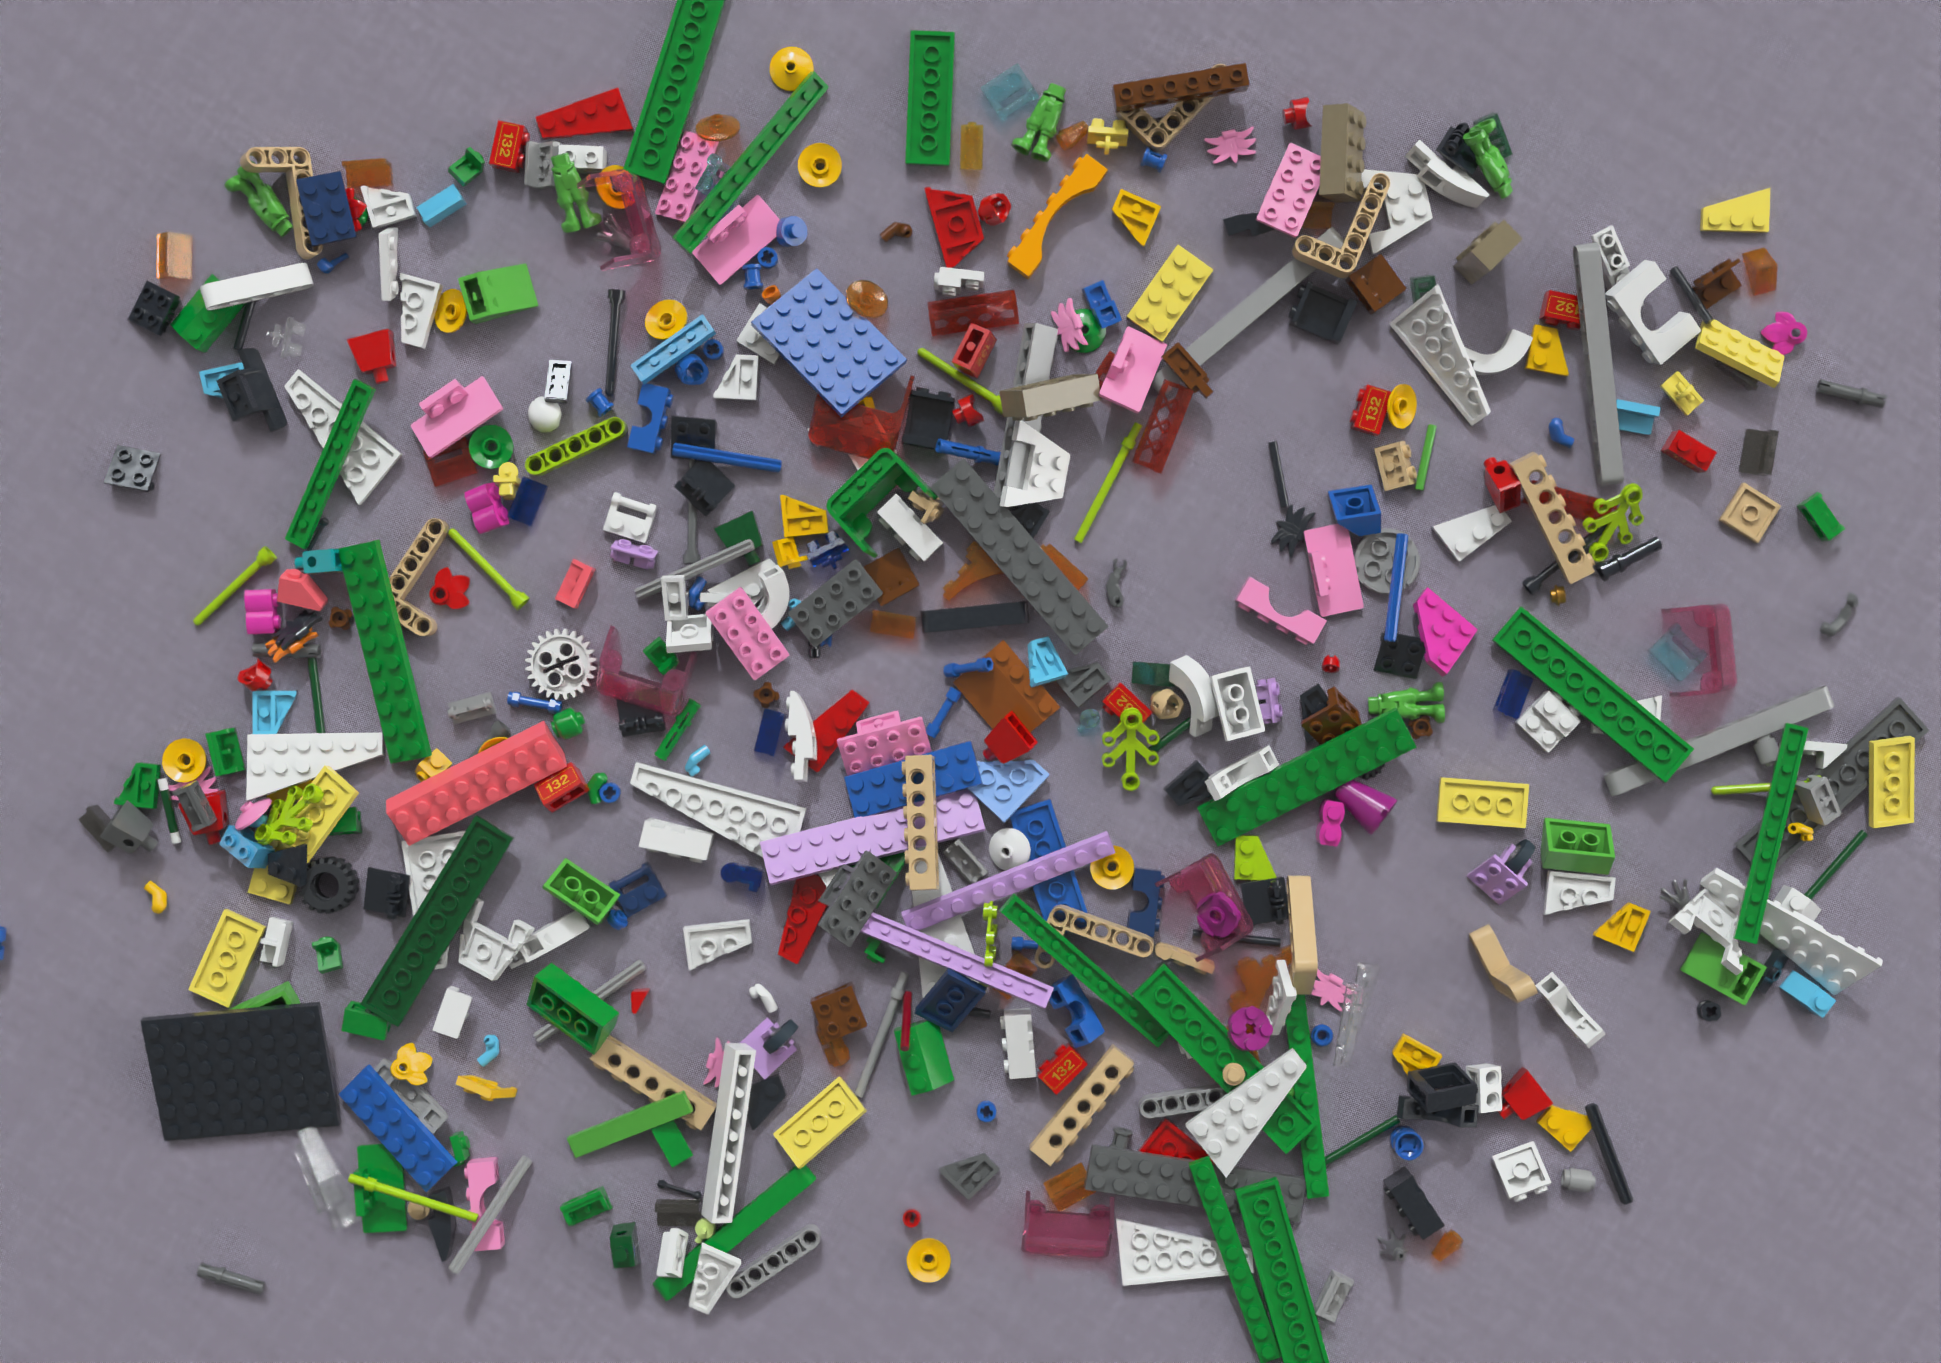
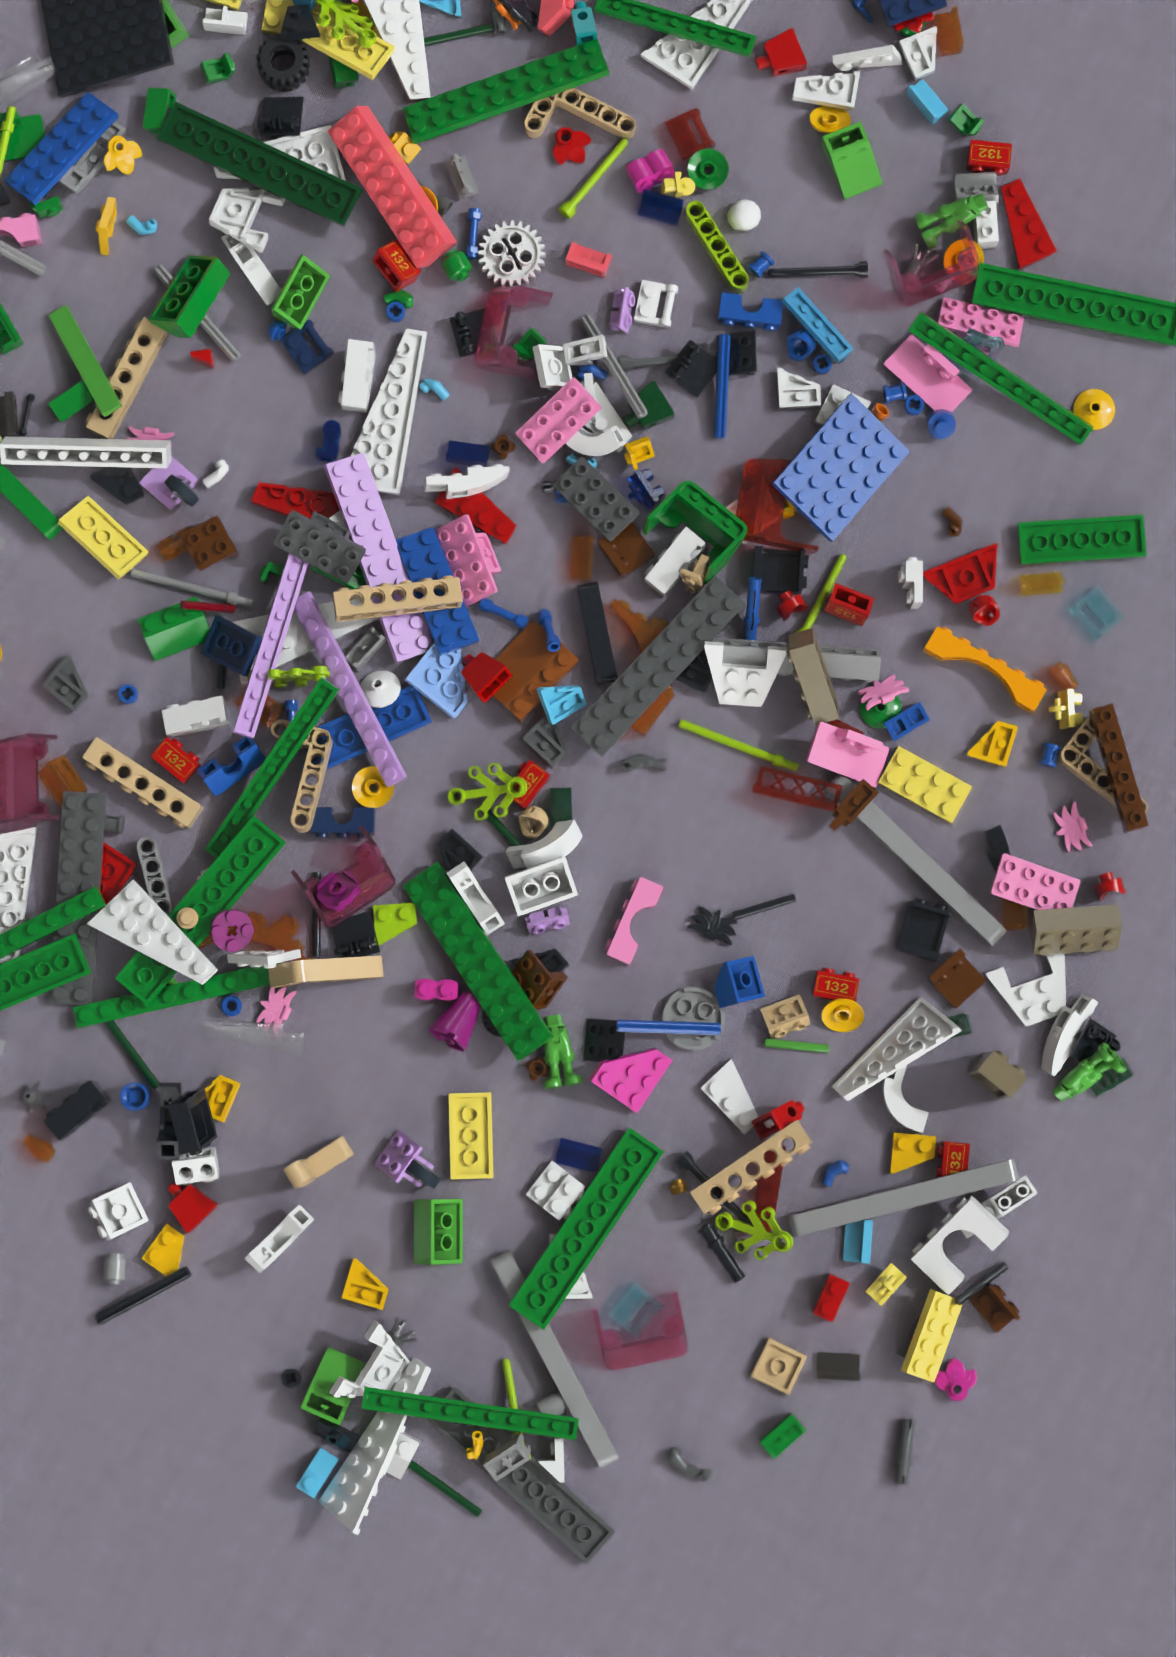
camera: 80 degrees right, 5 degrees down
(323, 522) = (621, 25): black hinge -> none
(334, 620) = (533, 43): reddish brown plate -> none
(452, 1012) = (174, 187): white panel -> none
(454, 413) = (735, 132): bright pink bracket -> none
(558, 381) = (775, 224): plate -> none
(661, 314) = (845, 316): yellow dish -> none
(691, 707) = (483, 378): green pin -> none
(712, 940) = (266, 421): white wing -> none
(717, 127) = (1029, 345): clear orange dish -> none
(802, 518) = (672, 462): yellow wing -> none
(816, 154) = (1013, 436): yellow dish -> none
(867, 299) = (892, 500): clear orange dish -> none
(908, 1216) = (21, 631): red hinge -> none
(975, 305) = (889, 599): clear red fence -> none
(1043, 119) = (1075, 647): bright green piece -> none
(1089, 719) = (511, 751): clear light blue piece -> none
(1183, 957) = (292, 862): tan hinge -> none
(1331, 664) = (588, 975): red hinge -> none
(1333, 569) = (678, 967): bright pink bracket -> none
(1354, 234) = (1000, 948): tan beam -> none
(1574, 890) = (395, 1235): white wing -> none
(1741, 214) = (1064, 1323): light yellow wing -> none
(1761, 270) = (1013, 1350): clear orange slope -> none
(1891, 781) = (532, 1531): light yellow plate -> none

